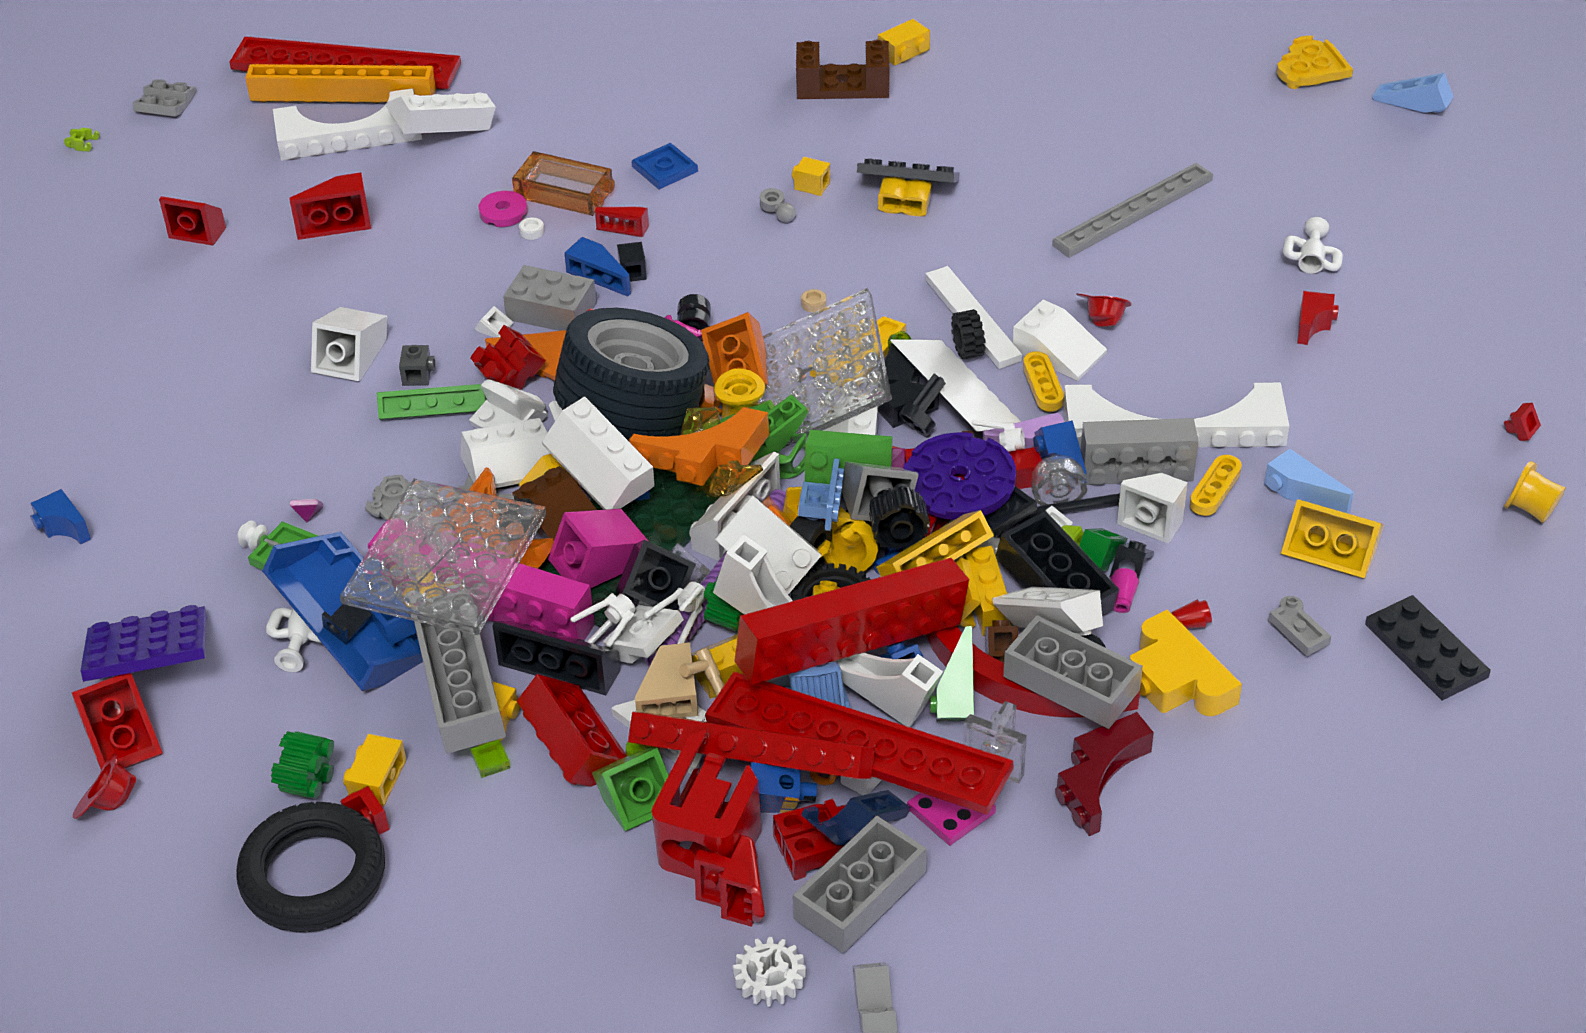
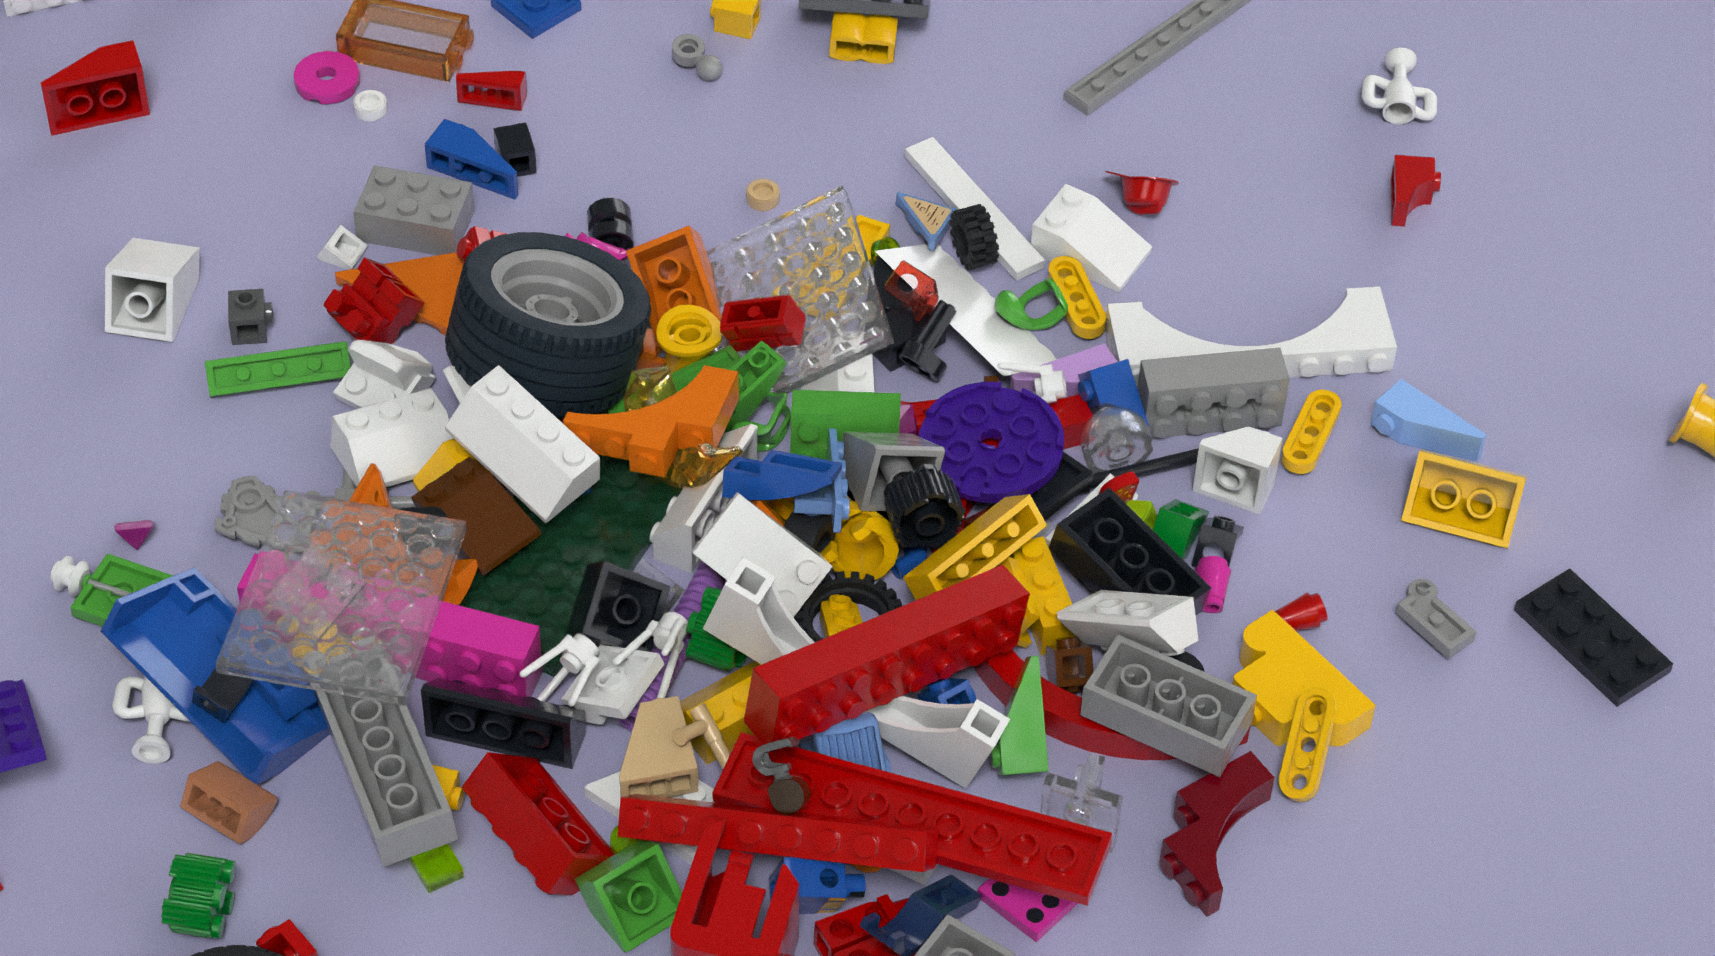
camera: 10 degrees left, 5 degrees up
(339, 701) = (227, 801): none -> nougat brick
(377, 766) = (291, 890): yellow brick -> none
(594, 545) = (533, 567): dark pink slope -> none
(758, 713) = (787, 791): none -> leg
(786, 486) = (777, 476): none -> blue slope
(799, 378) = (766, 319): none -> red brick
(919, 373) = (922, 298): none -> clear red bracket
(934, 321) = (925, 217): none -> tile
(990, 386) = (1013, 309): none -> bright green piece
(1060, 512) = (1123, 485): none -> red tile
(1182, 698) = (1307, 728): none -> yellow plate
(1523, 422) = (1684, 323): red tile -> none

